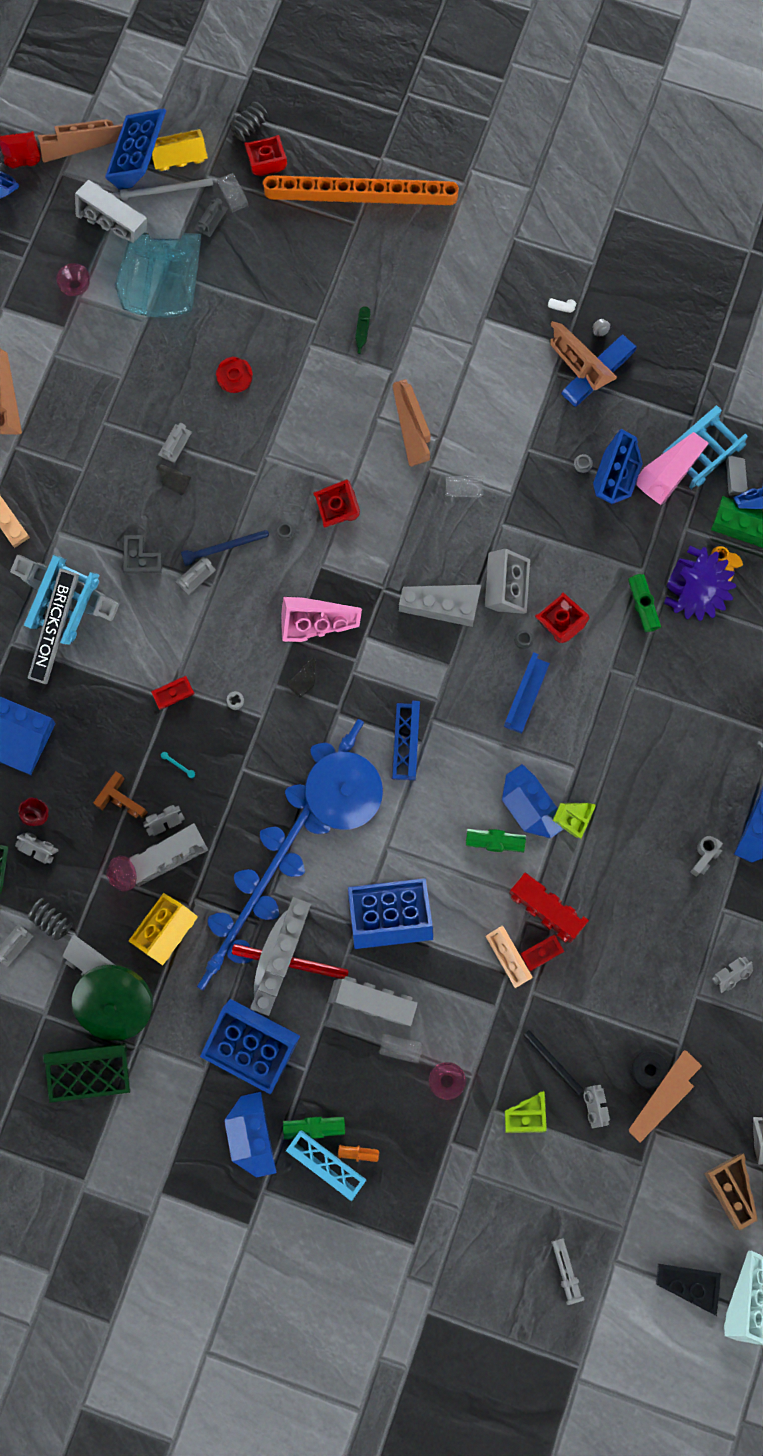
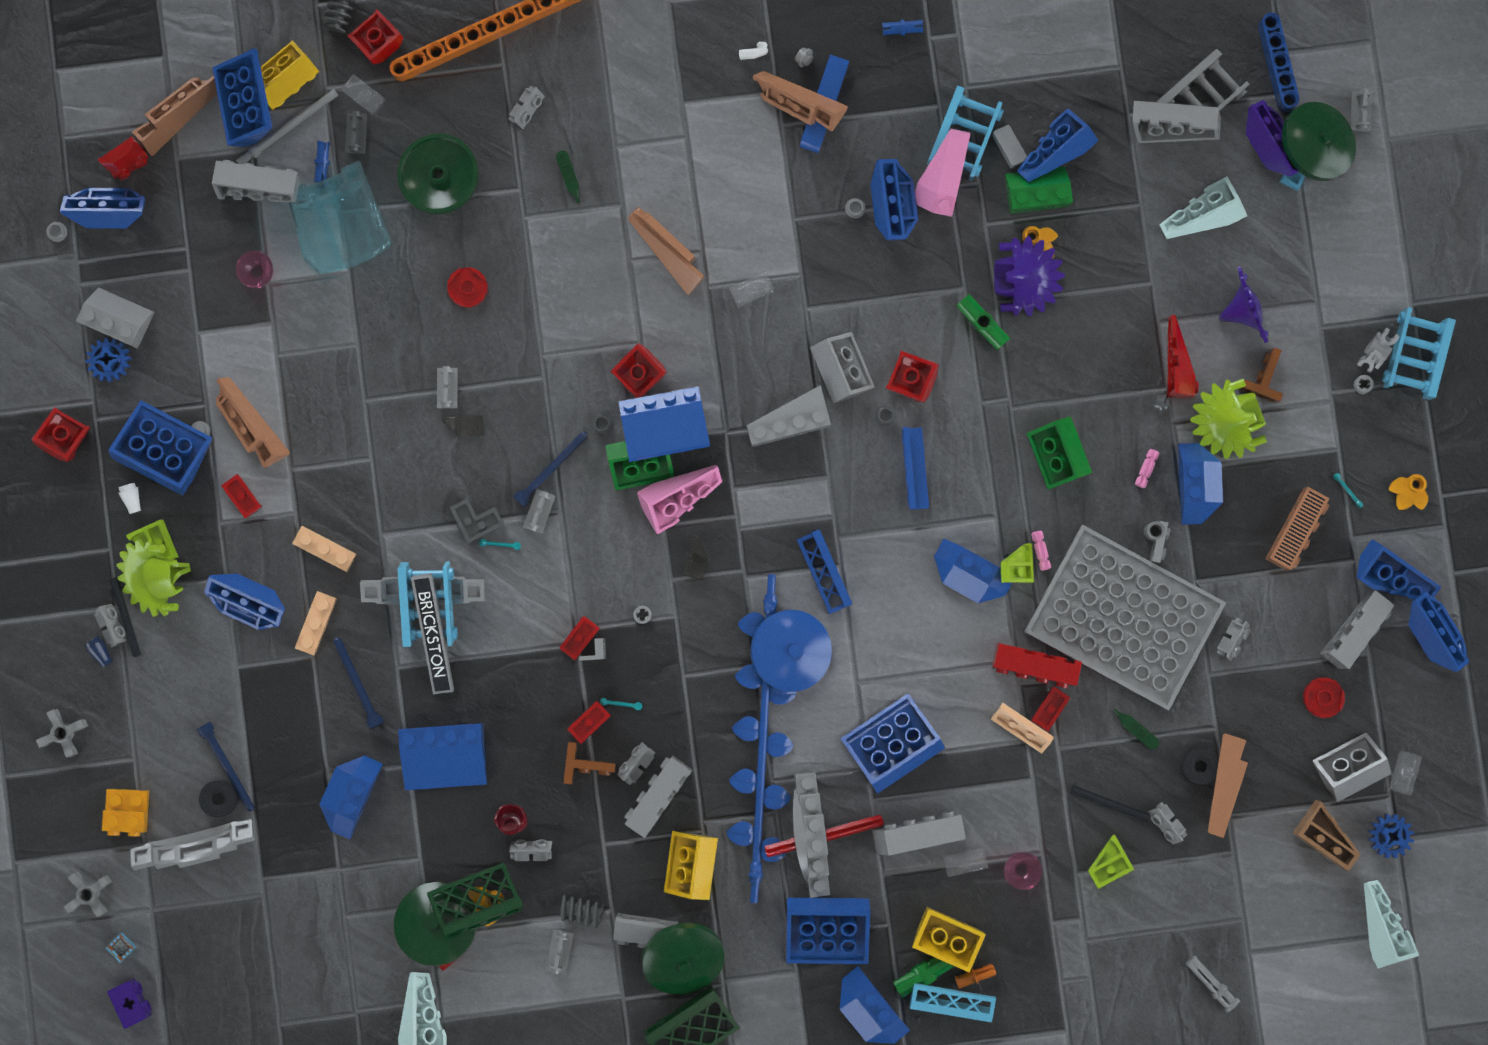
camera: 30 degrees left, 10 degrees up
(121, 873) = (626, 835): clear pink piece -> none
(142, 765) = (589, 722): none -> red plate
(162, 594) = (482, 542): none -> teal hinge
(172, 225) = (321, 161): none -> blue pin
(182, 710) = (600, 651): none -> light grey panel
(258, 276) = (438, 174): none -> dark green dish
(299, 575) = (639, 472): none -> green slope
(335, 551) = (664, 424): none -> blue slope
(350, 1106) = (948, 939): none -> yellow slope
(354, 264) = (522, 114): none -> light grey hinge
(495, 840) = (956, 625): green piece -> none
(600, 815) = (1041, 550): none -> bright pink axle
(609, 1011) = (1137, 730): none -> dark green piece
(646, 908) = (1125, 617): none -> light grey plate
(656, 740) = (1059, 452): none -> green slope
(691, 1284) = (1327, 938): black wing -> none
(693, 343) = (902, 27): none -> blue pin
(727, 791) = (1147, 468): none -> bright pink axle

